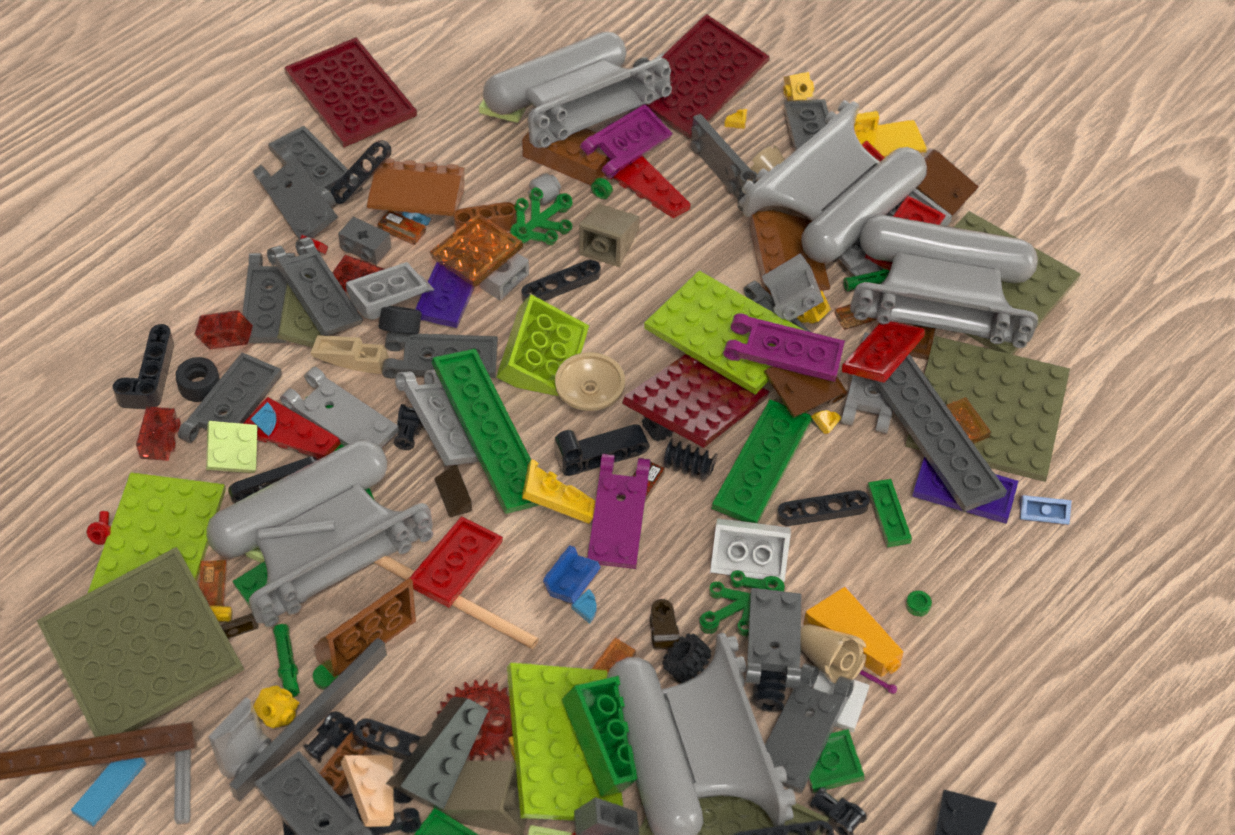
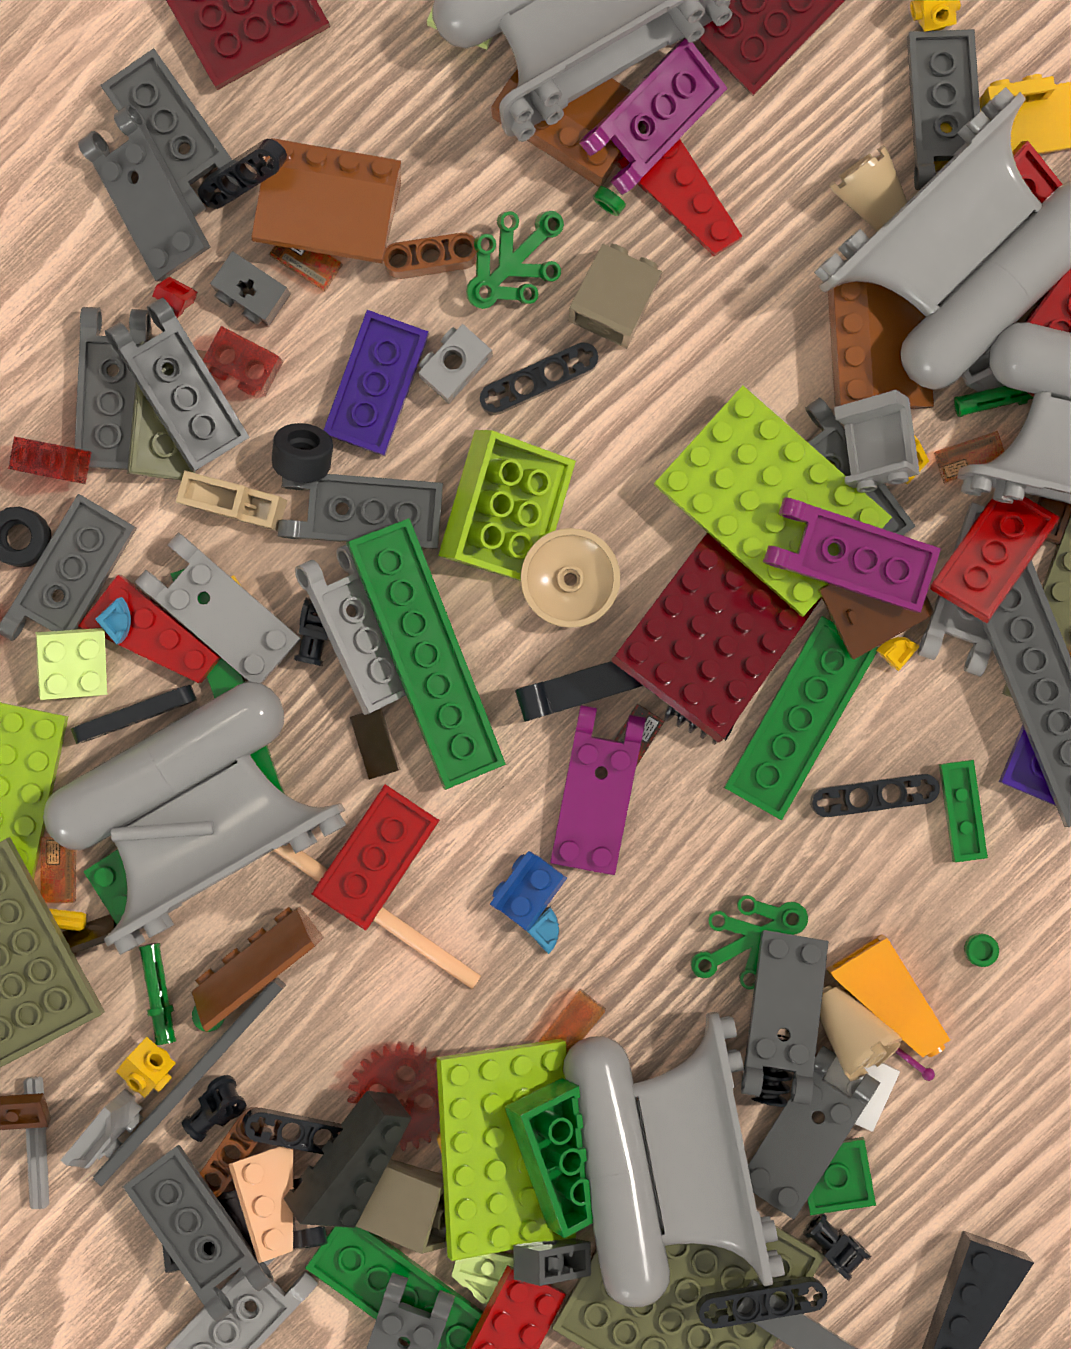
camera: 10 degrees right, 35 degrees up
(386, 288) = (286, 401): light grey slope -> none
(476, 249) = (415, 333): clear orange plate -> none
(549, 186) = (523, 198): light grey head -> none
(549, 492) = (509, 765): yellow wing -> none
(663, 627) = (643, 979): dark brown piece -> none
(686, 658) = (683, 1036): black tyre -> none
(720, 157) = (816, 195): dark grey hinge -> none
(737, 119) = (831, 57): yellow tile -> none
(751, 548) = (769, 860): white slope -> none

